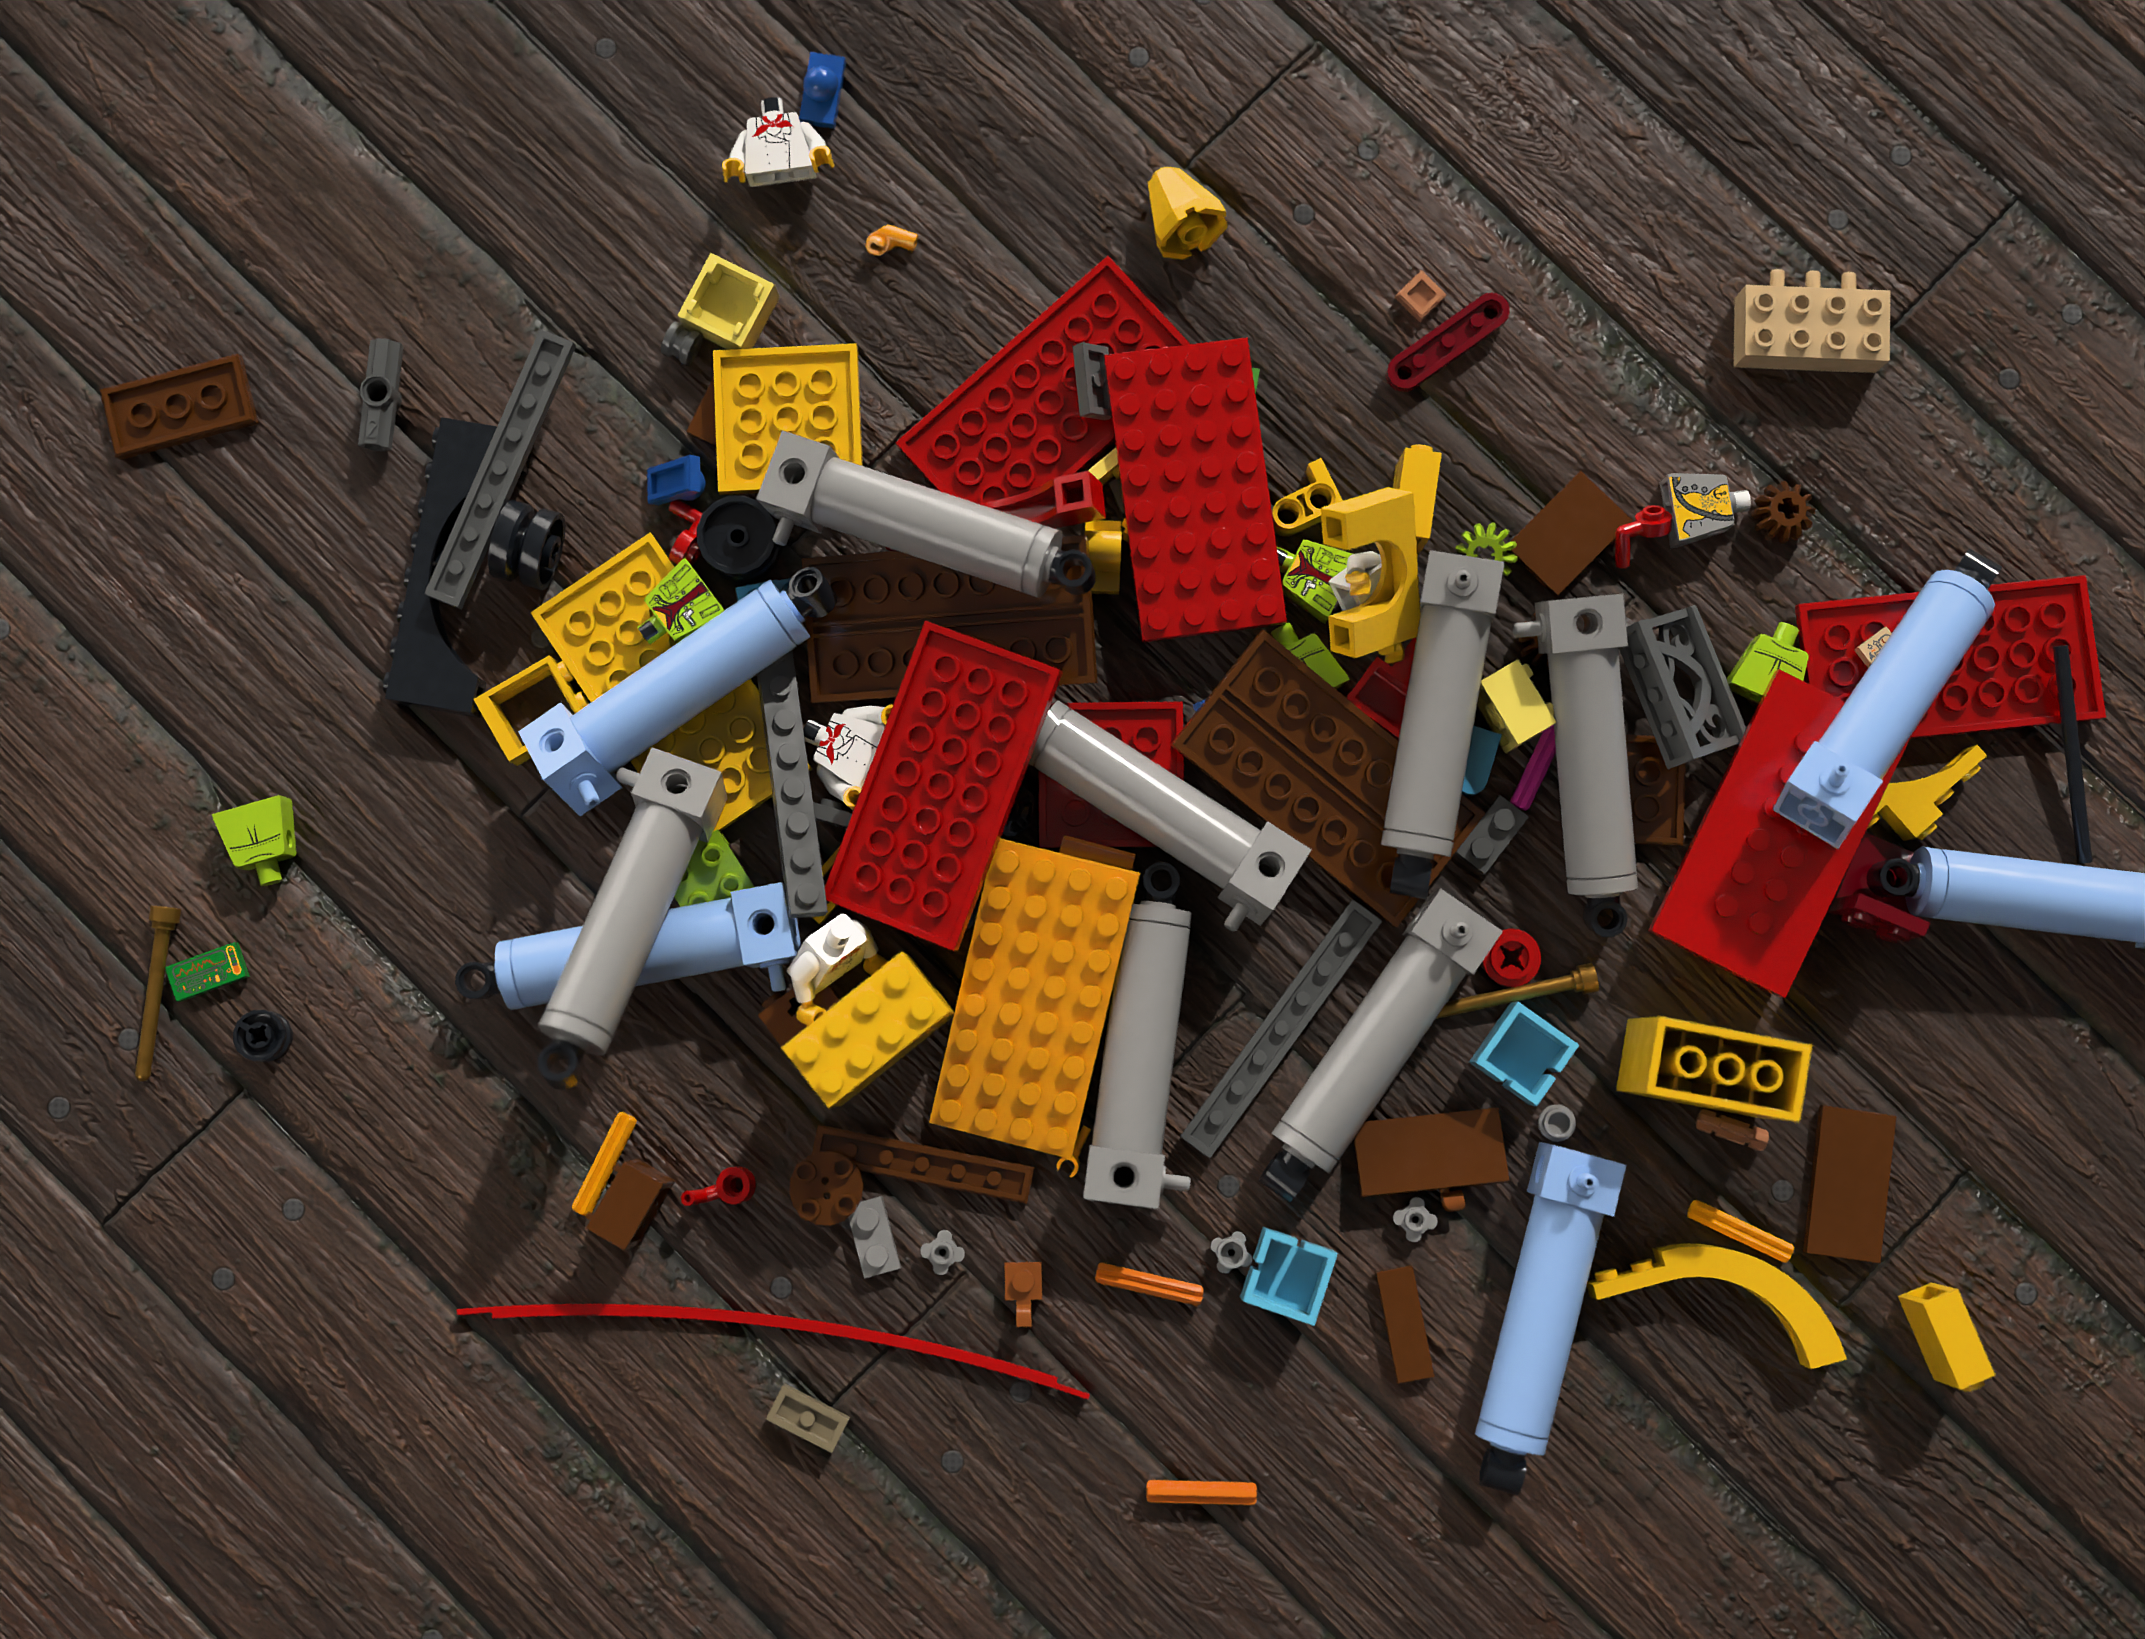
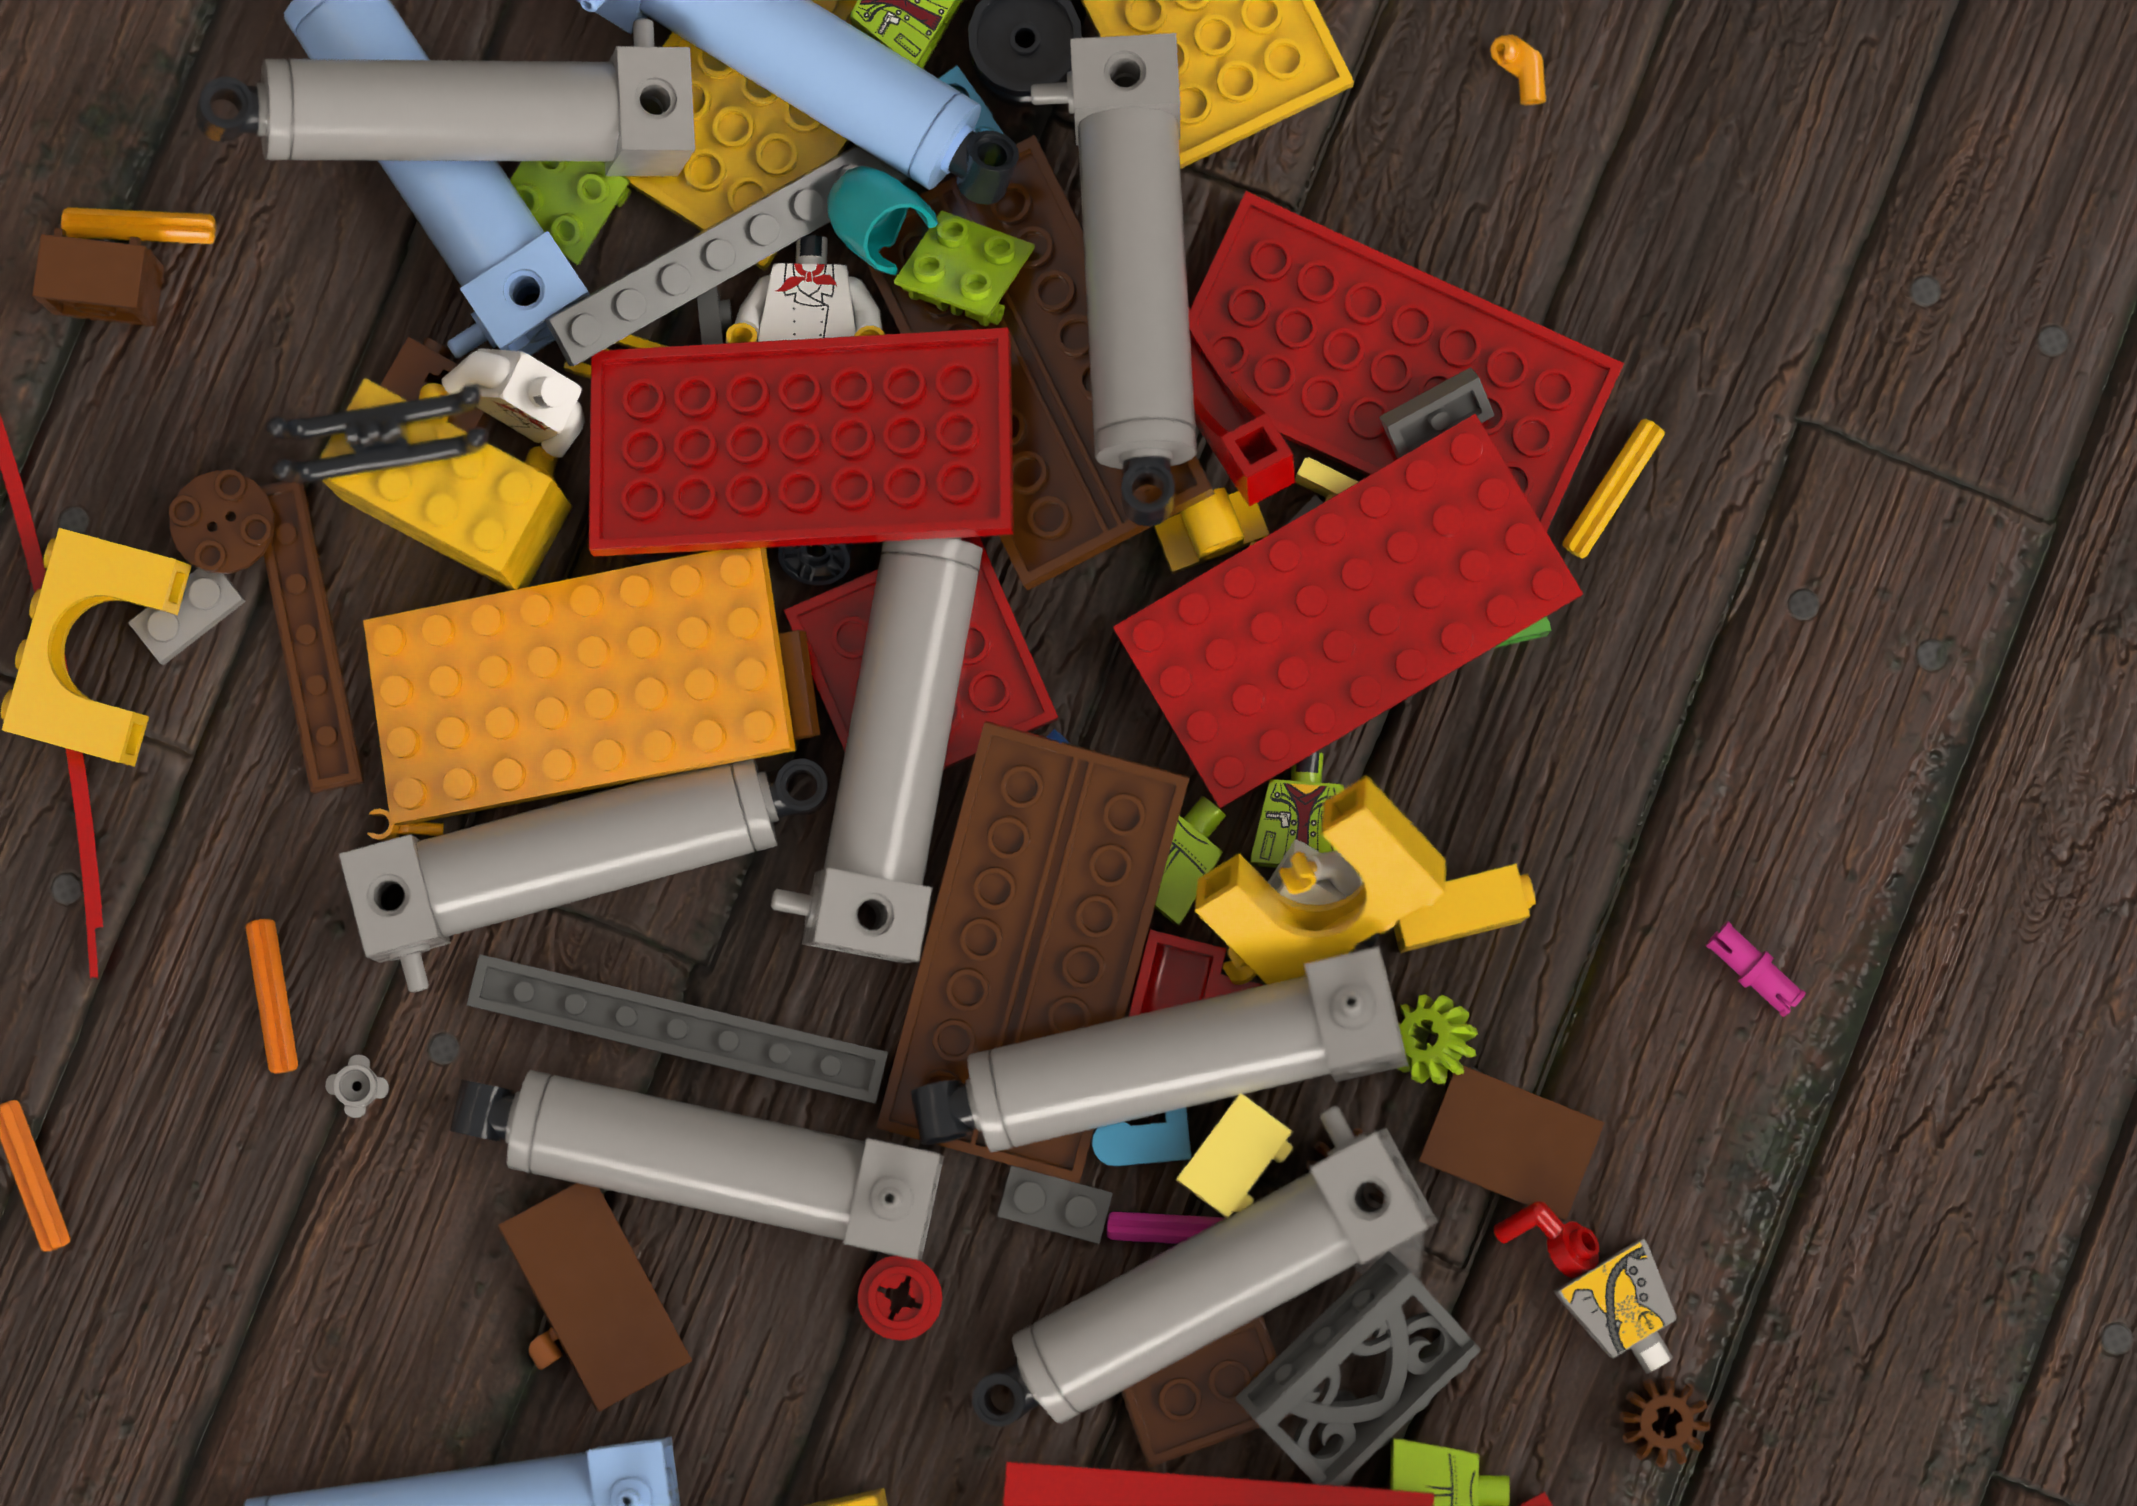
camera: 70 degrees right, 0 degrees up
(724, 1188) = (169, 393): red plate -> none
(805, 683) = (869, 212): none -> teal piece
(827, 1052) = (378, 437): none -> black piece
(870, 636) = (964, 268): none -> lime hinge
(893, 1353) = (77, 577): none -> yellow arch
(939, 1262) = (206, 724): light grey plate -> none
(1023, 1284) = (203, 832): dark orange plate -> none
(1182, 297) = (1613, 488): none -> yellow axle
(1183, 213) = (1723, 437): yellow cone -> none
(1288, 1276) = (353, 1172): medium azure piece -> none
(1300, 502) = (1397, 762): yellow tile -> none
(1404, 1218) = (513, 1305): light grey plate -> none
(1404, 1324) = (356, 1353): reddish brown tile -> none
(1420, 296) = (1755, 808): nougat tile -> none
(1447, 342) = (1705, 870): dark red plate -> none
(1521, 1051) = (777, 1360): medium azure piece -> none
(1522, 337) = (1755, 969): none -> dark pink pin
(1556, 1123) = (704, 1448): light grey plate -> none
(1581, 979) = (907, 1401): pearl gold piece -> none
(1812, 326) = (1942, 1356): tan piece -> none

